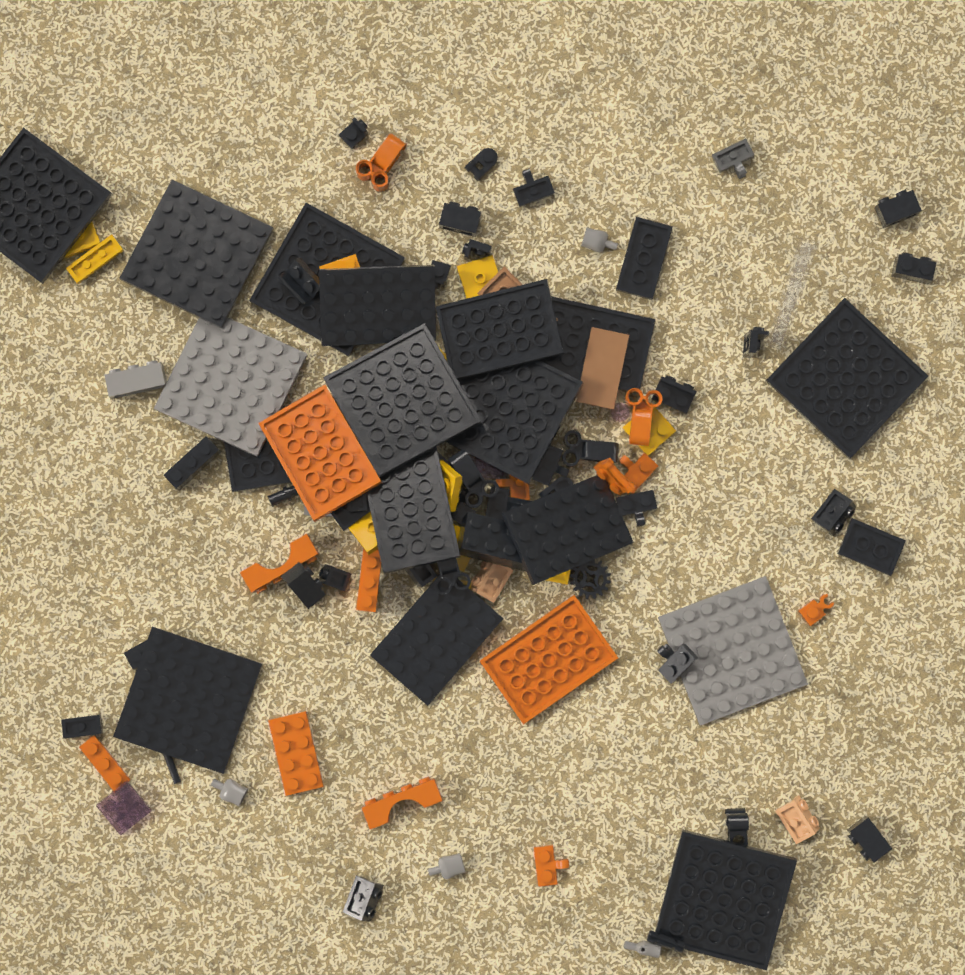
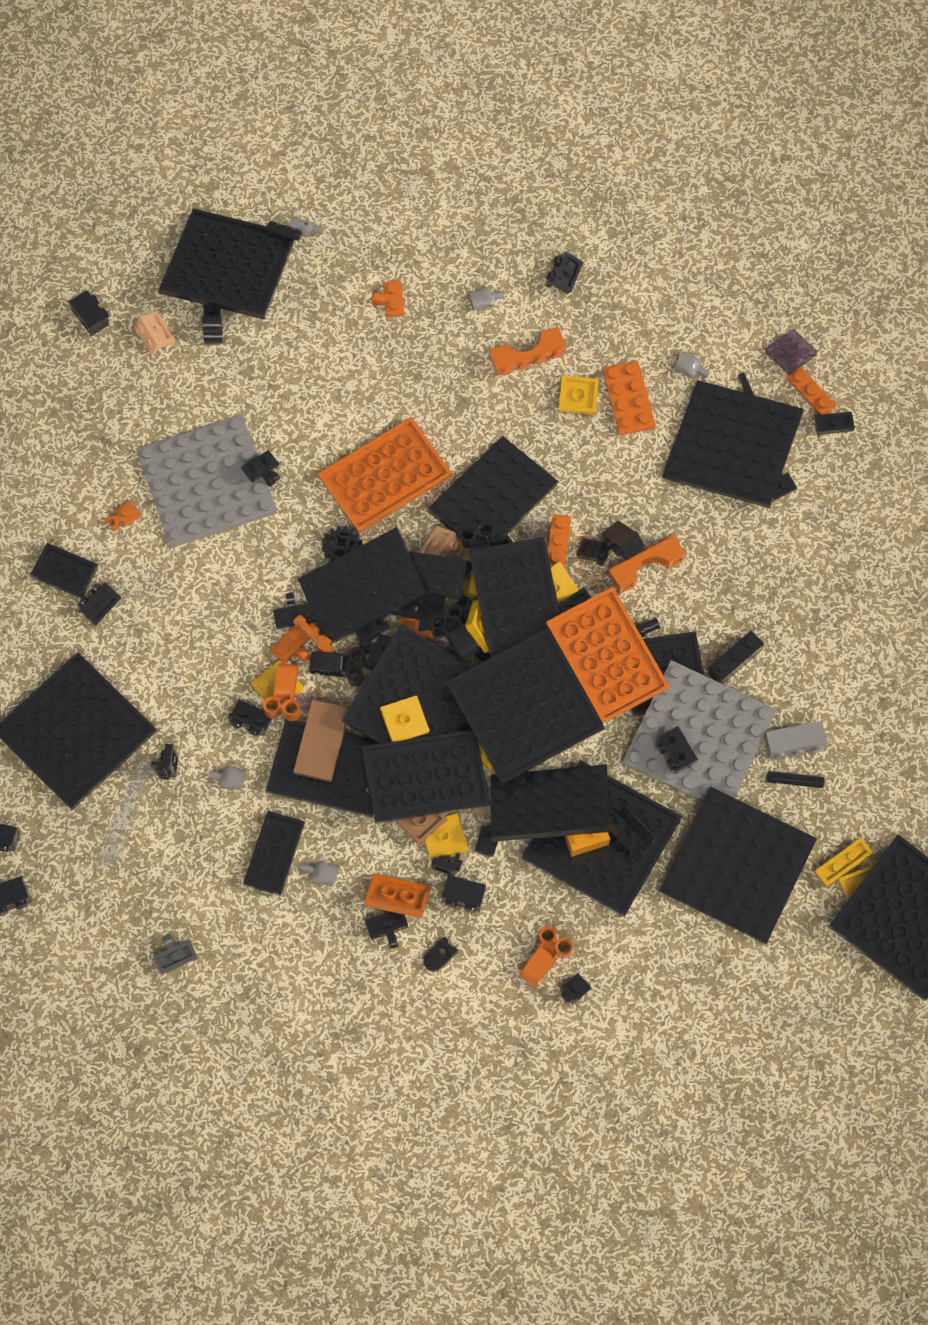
camera: 175 degrees right, 15 degrees down
(138, 342) = (795, 779): none -> black axle
(252, 359) = (676, 750): none -> black brick
(348, 753) = (578, 395): none -> yellow plate
(521, 385) = (404, 719): none -> yellow plate
(523, 215) = (397, 895): none -> orange plate
(691, 333) = (229, 778): none -> light grey piece

